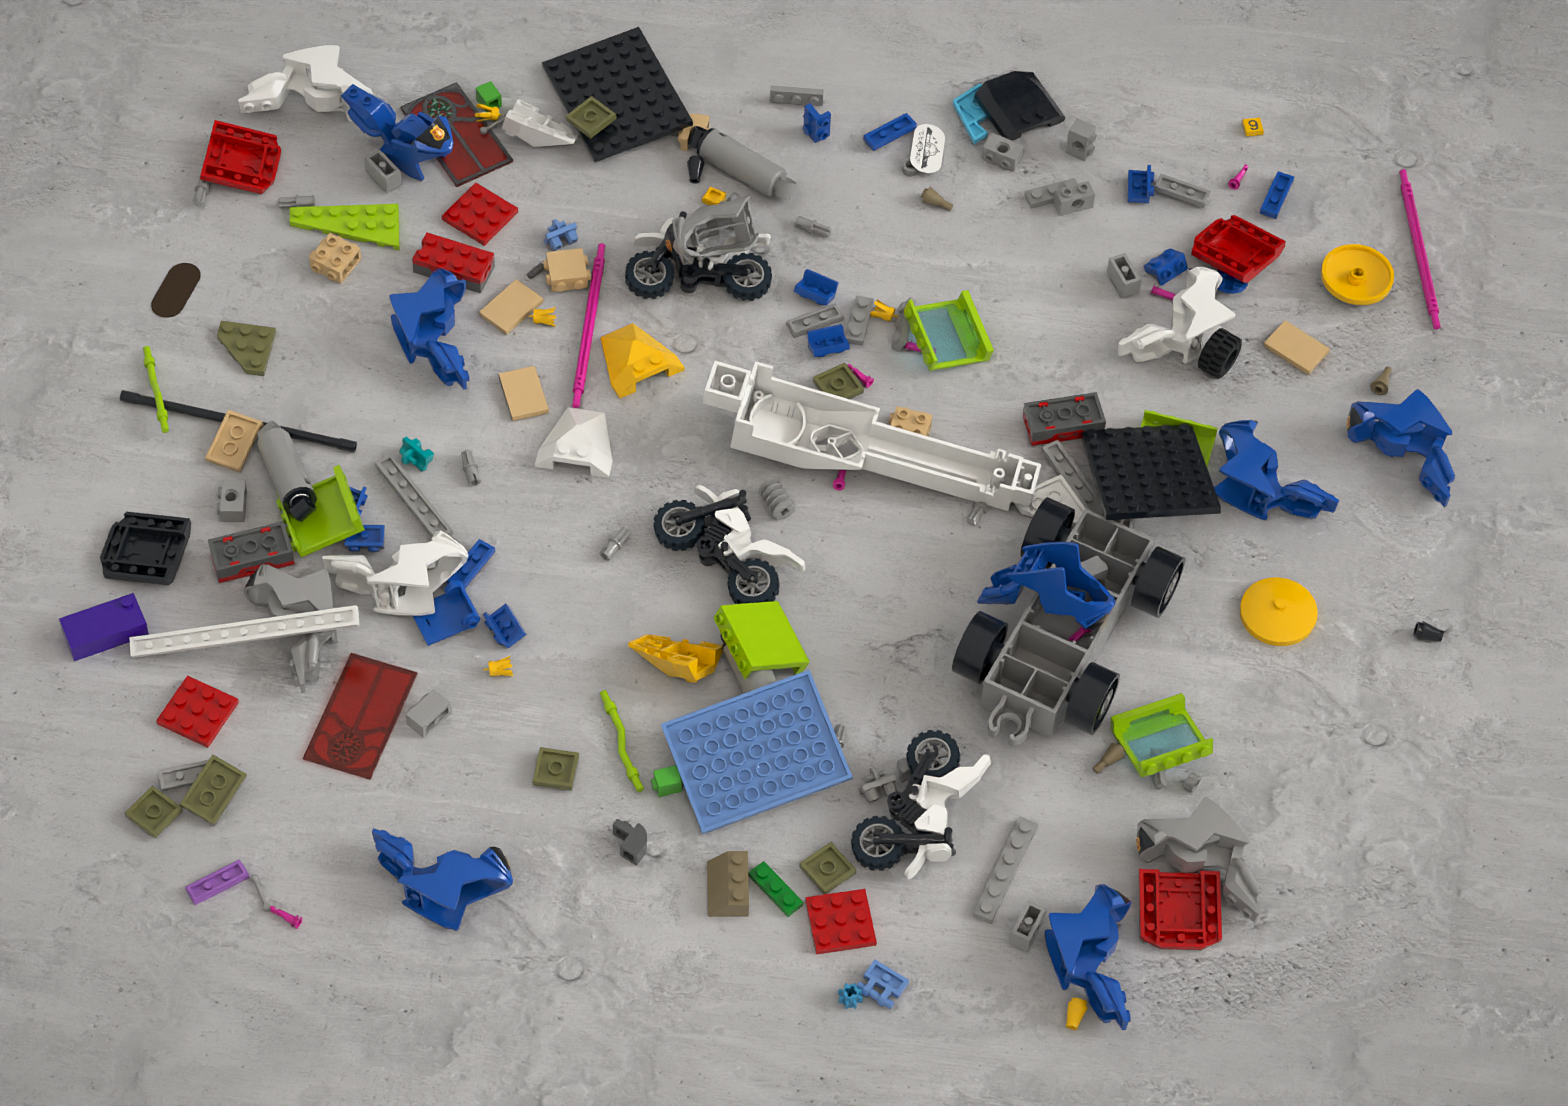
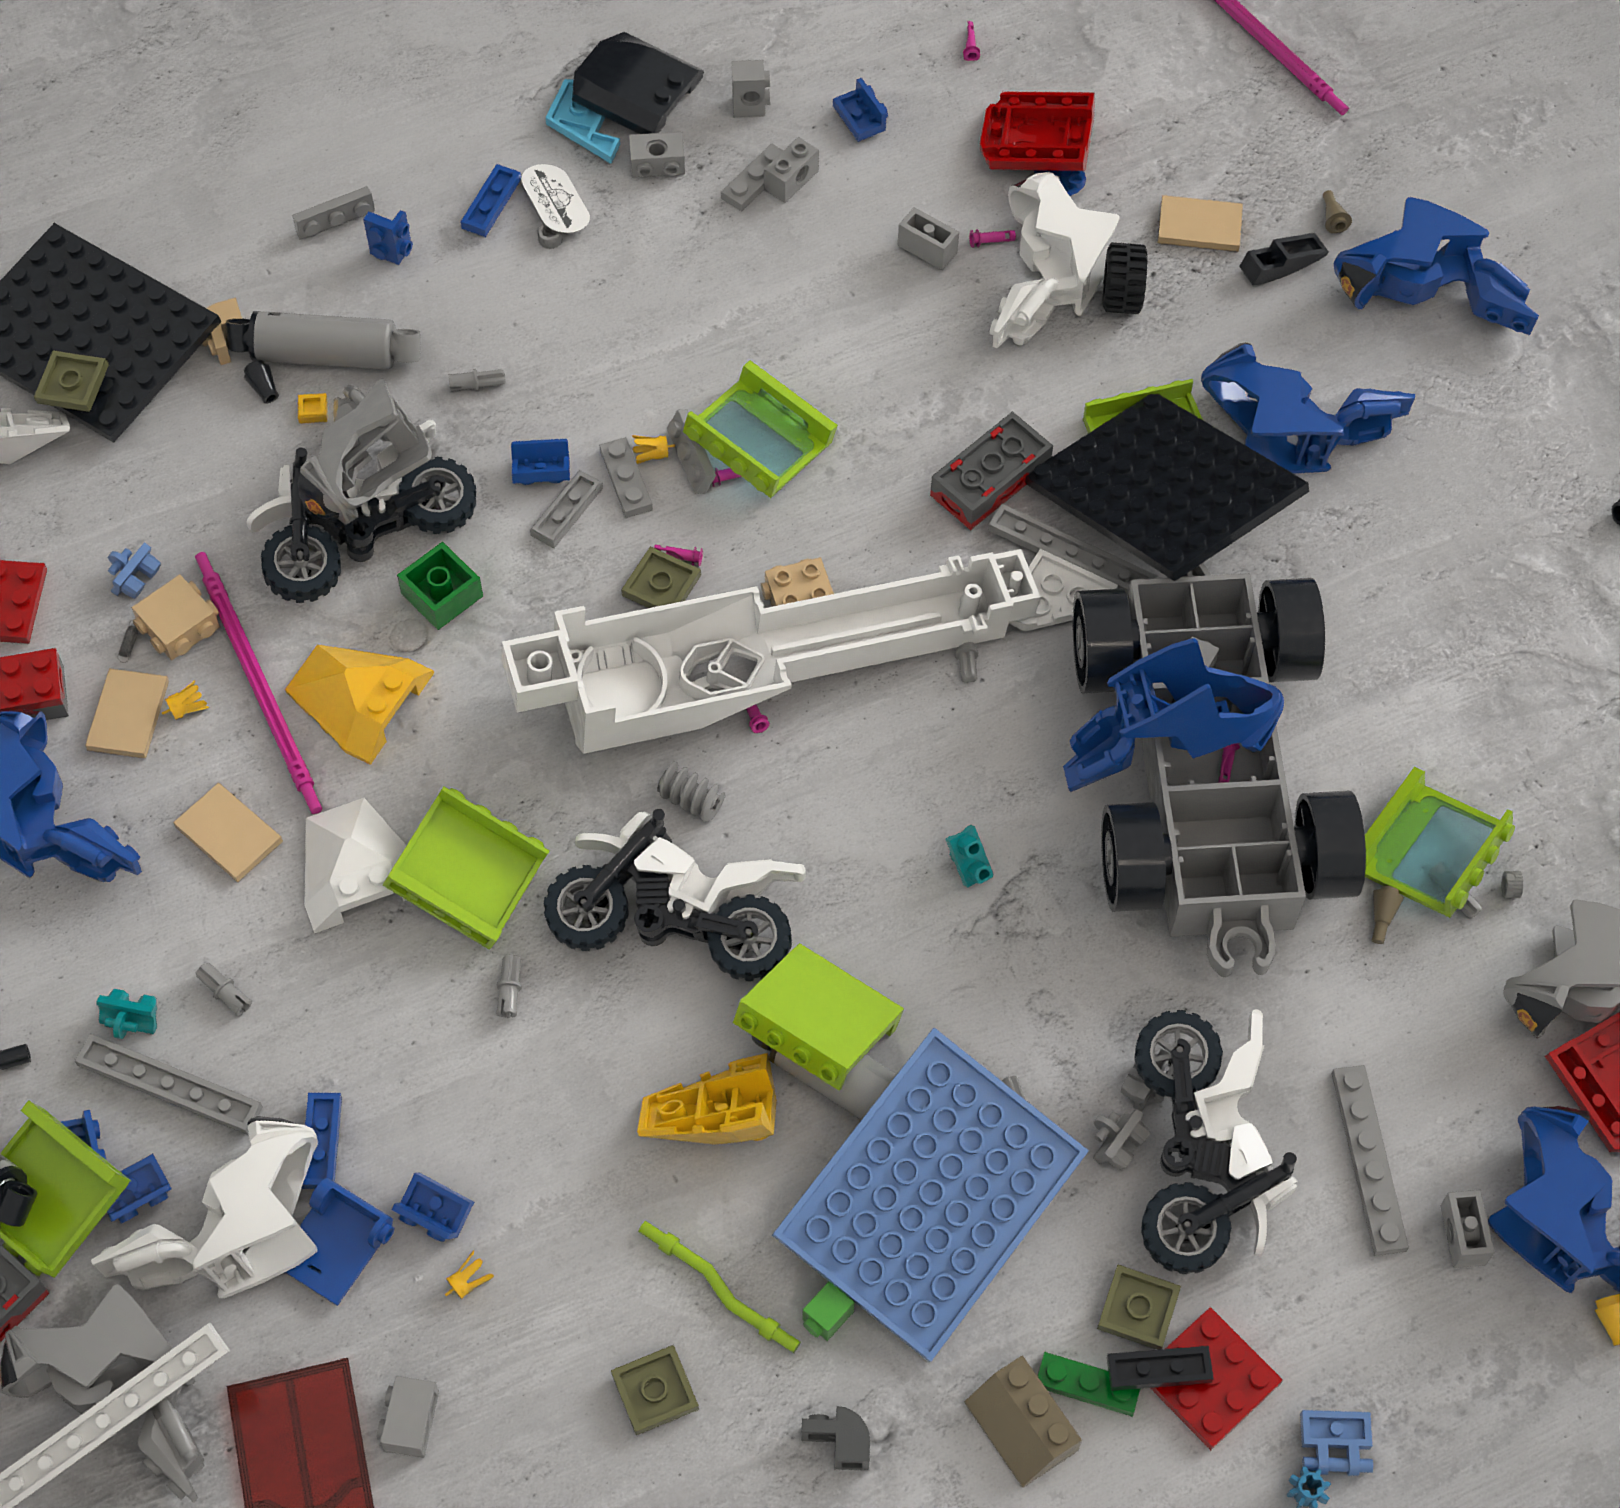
camera: 30 degrees left, 5 degrees up
(631, 472) = (466, 867): none -> lime panel
(716, 324) = (440, 585): none -> green brick
(814, 897) = (1159, 1368): none -> black plate
(827, 340) = (606, 528): blue bracket -> none
(901, 607) = (969, 857): none -> teal hips
(931, 197) = (608, 260): dark tan cone -> none
(1167, 265) = (967, 198): blue bracket -> none
(1182, 190) = (917, 92): light grey plate -> none
(1277, 195) = (1035, 41): blue plate -> none
(1278, 611) = (1437, 584): yellow dish -> none
(1329, 390) = (1282, 258): none -> black slope
(1357, 274) = (1208, 92): yellow dish -> none

